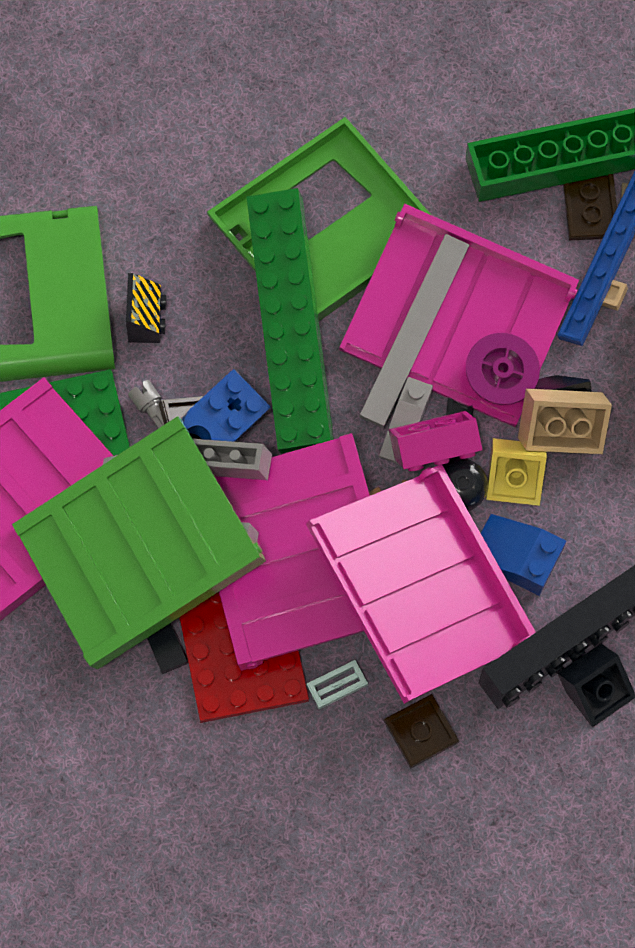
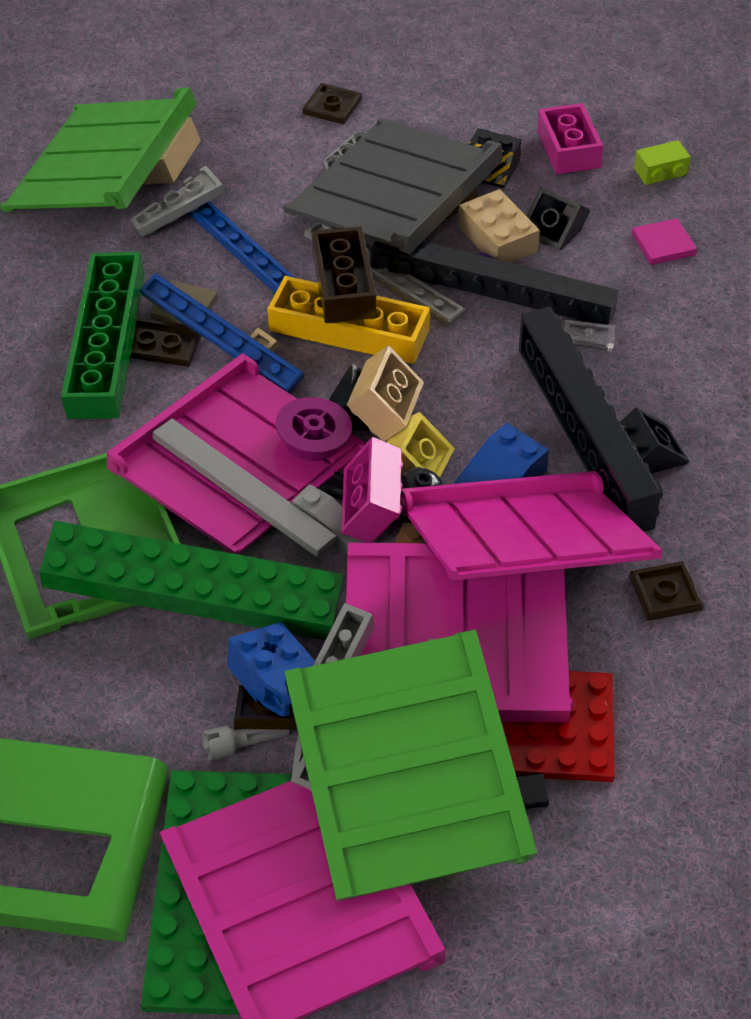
camera: 70 degrees left, 20 degrees down
(144, 310) = (116, 720): slope -> none
(341, 694) = (604, 667): light aqua tile -> none

